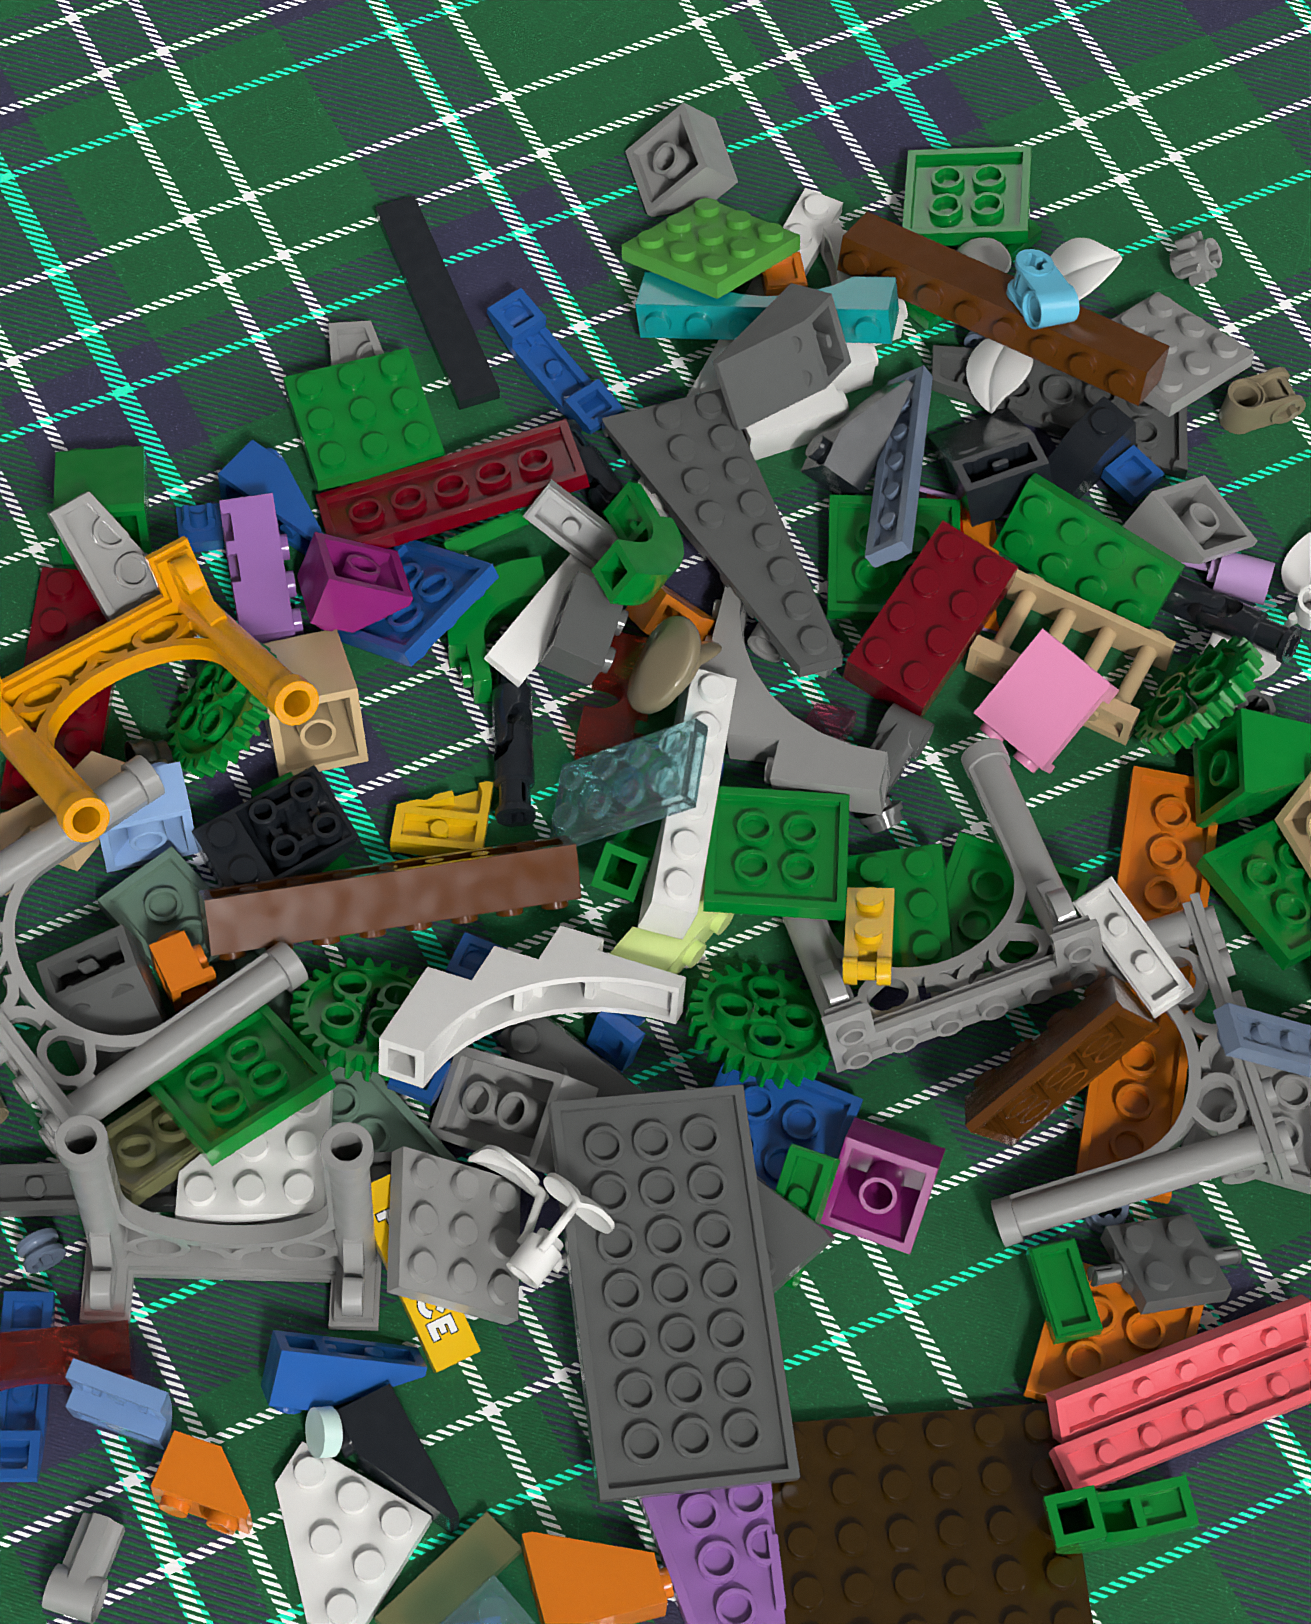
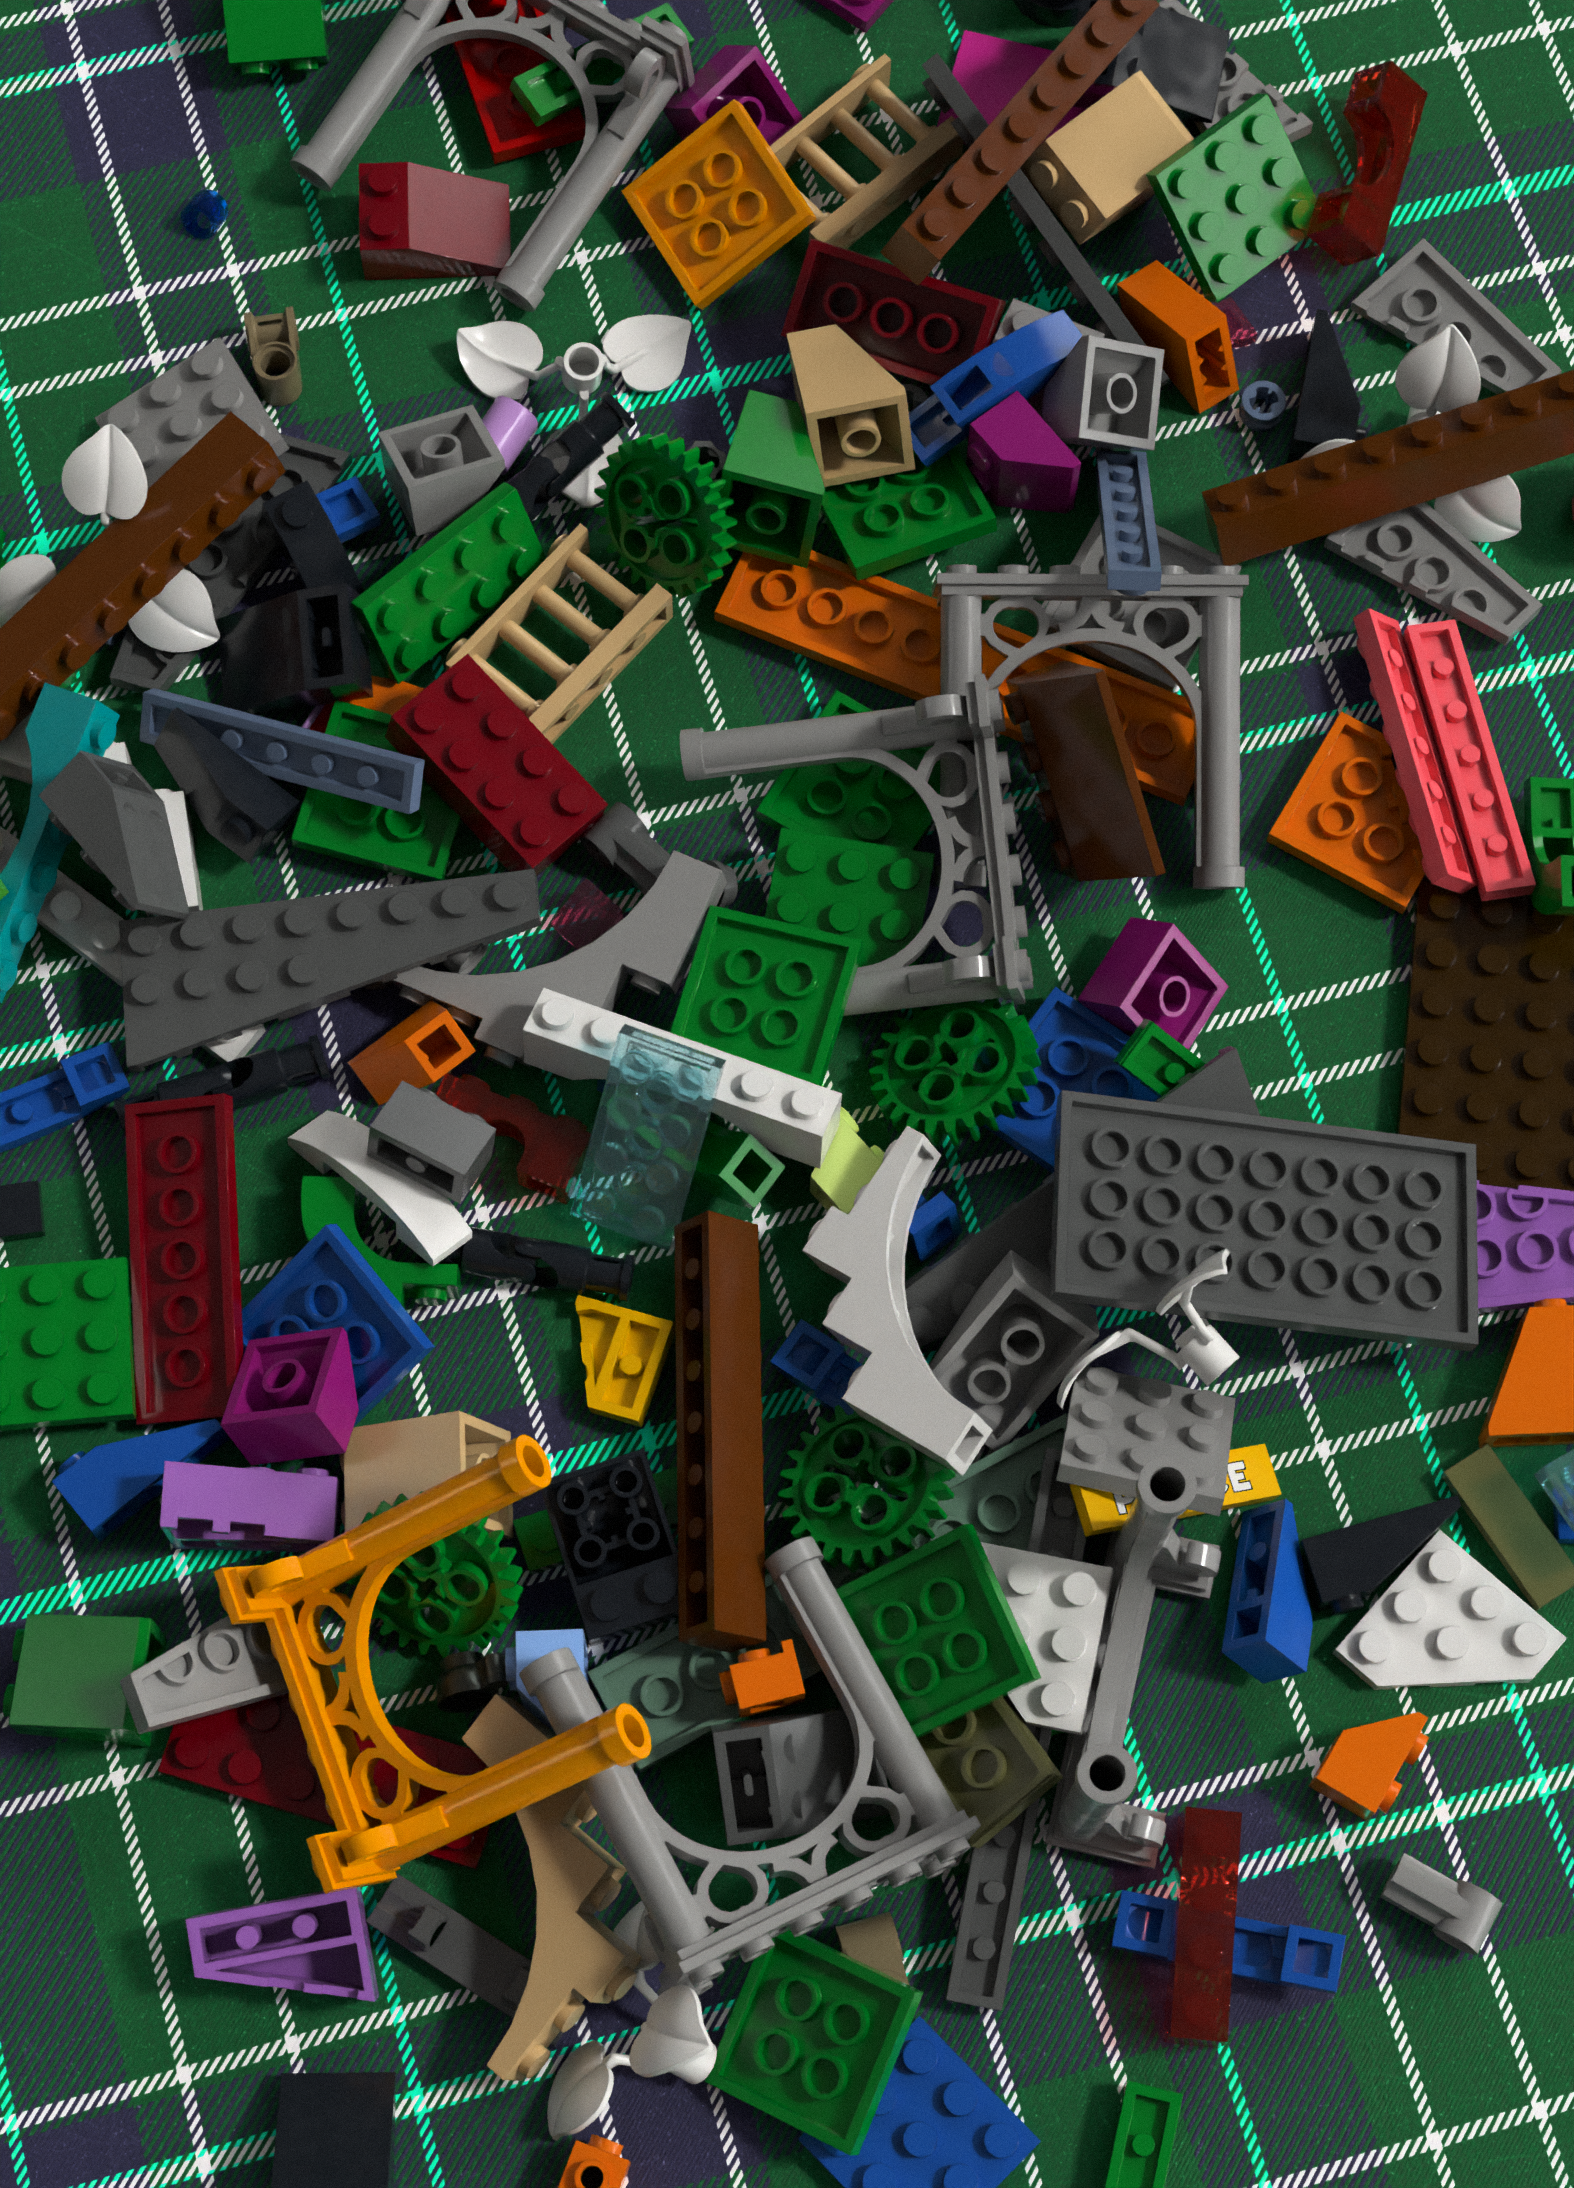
camera: 75 degrees left, 10 degrees up
(40, 1250) = (1065, 1899): sand blue bush -> none
(119, 1404) = (1280, 1833): medium blue slope -> none
(201, 526) = (143, 1572): blue tile -> none
(323, 1432) = (1340, 1620): light aqua tile -> none
(487, 533) = (254, 1252): green tile -> none
(571, 524) = (293, 1115): light grey tile -> none
(645, 552) = (346, 1043): green arch -> none
(668, 664) = (506, 1059): dark tan piece -> none
(869, 935) = (896, 924): yellow plate -> none
(1042, 291) = (134, 526): medium azure piece -> none
(1043, 702) = (628, 676): bright pink panel -> none
(1064, 1291) = (1311, 841): green tile -> none
(1134, 948) = (993, 651): white tile -> none
(1165, 1264) = (1297, 737): dark grey plate -> none
(1195, 258) = (65, 363): light grey gear -> none

